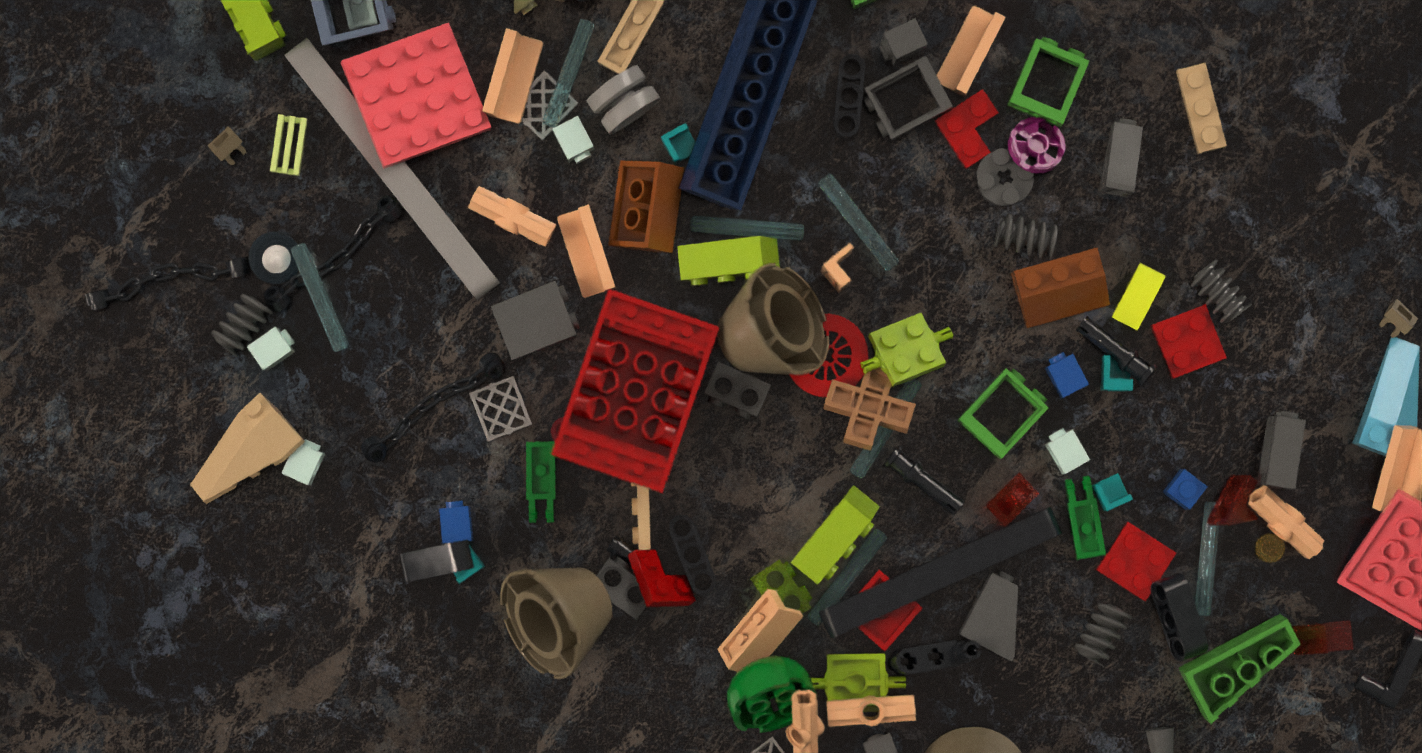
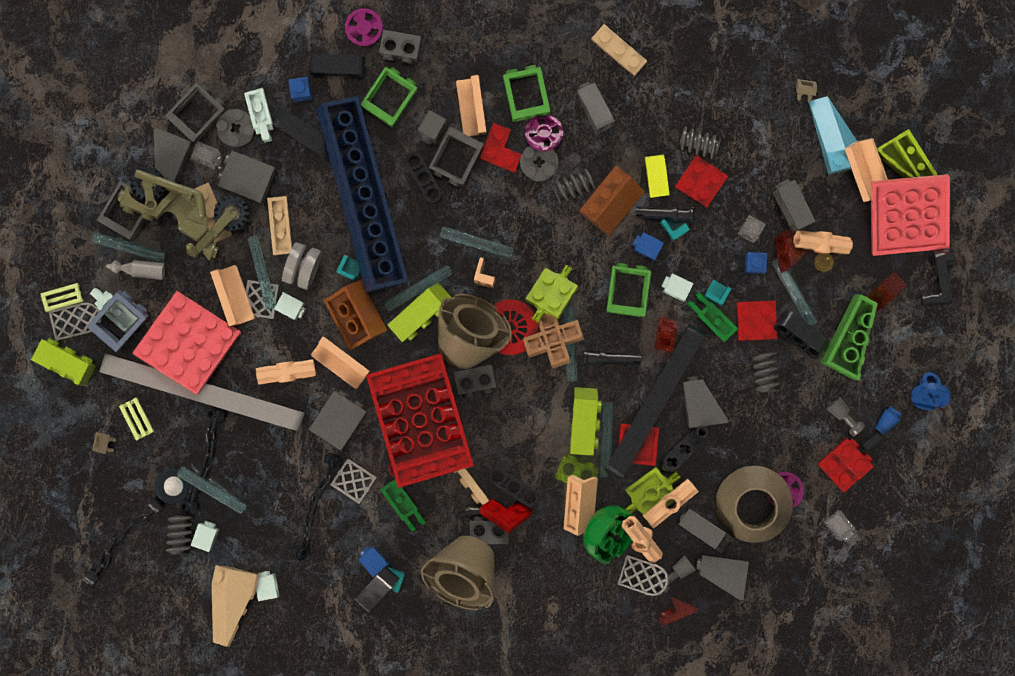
camera: 30 degrees left, 0 degrees up
(1209, 443) = (751, 228): none -> clear brick

